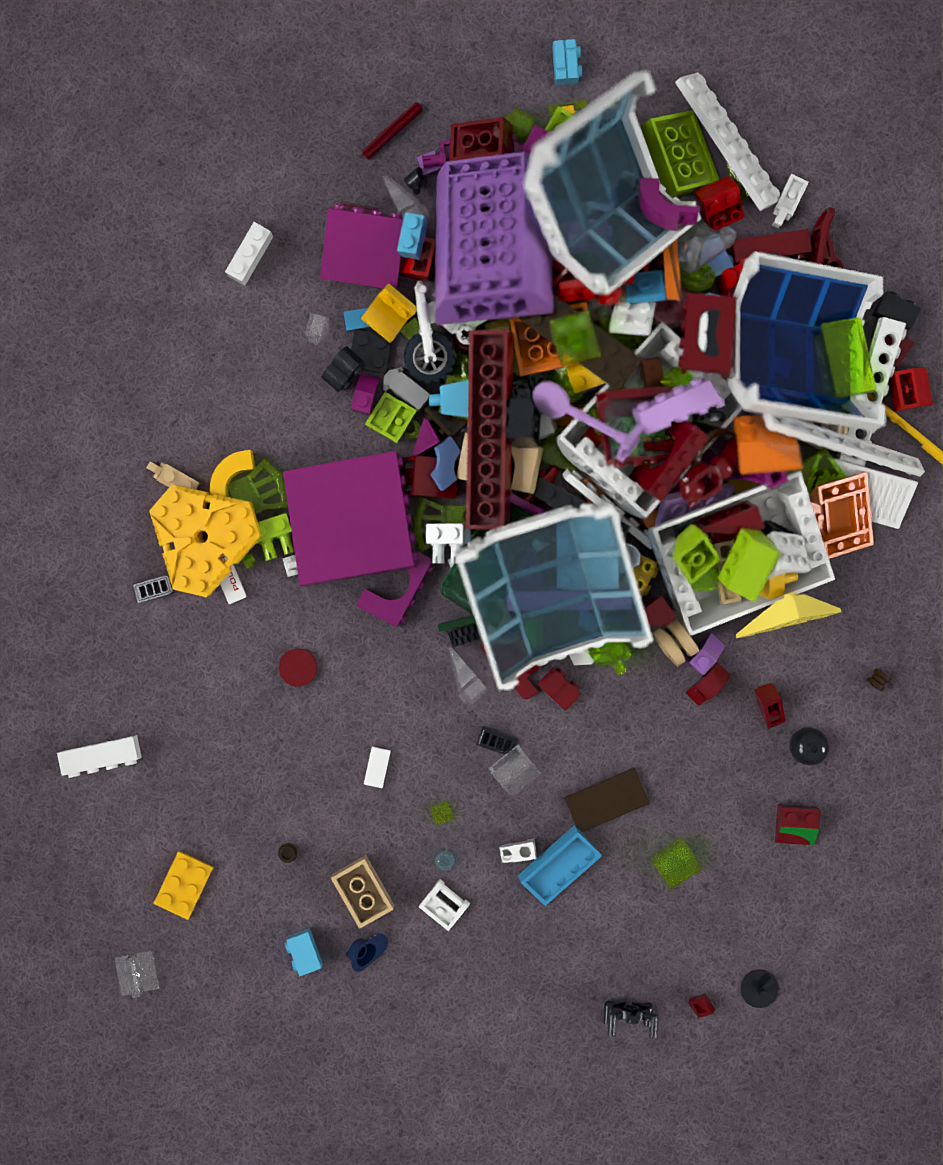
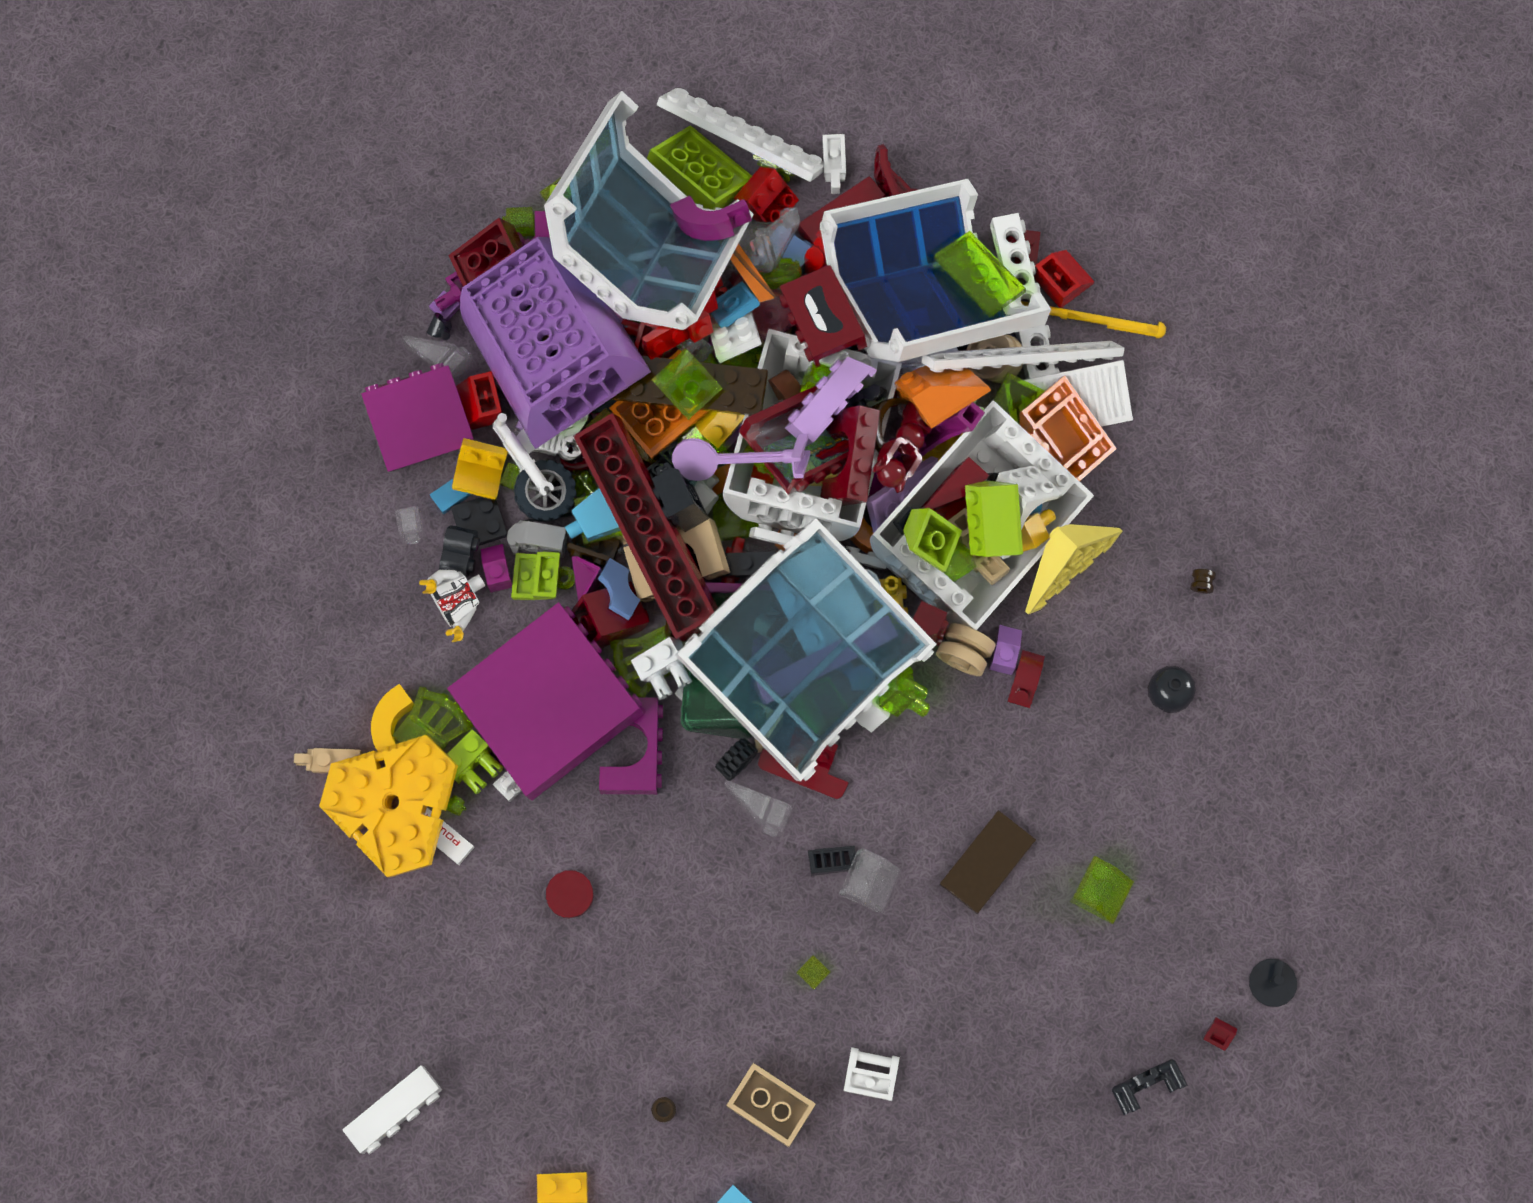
camera: 25 degrees left, 15 degrees down
(166, 579) = (377, 890): slope -> none
(249, 253) = (299, 485): white brick -> none
(321, 405) = (454, 598): none -> torso
(365, 951) = (811, 1173): dark blue piece -> none
(377, 767) = (714, 958): white tile -> none
(392, 130) = (390, 293): dark red axle -> none
(412, 236) = (464, 377): medium azure brick -> none
(444, 860) = (845, 1023): clear light blue plate -> none
(456, 623) = (710, 762): dark green tile -> none
(518, 851) = (921, 968): white leg -> none
(559, 688) = (869, 766): dark red brick -> none
(559, 865) = (975, 960): dark azure slope -> none
(566, 62) = (535, 142): medium azure brick -> none
(770, 705) = (1105, 666): dark red slope -> none
(797, 824) = (1207, 778): dark red slope -> none
(897, 309) = (1000, 205): black brick -> none

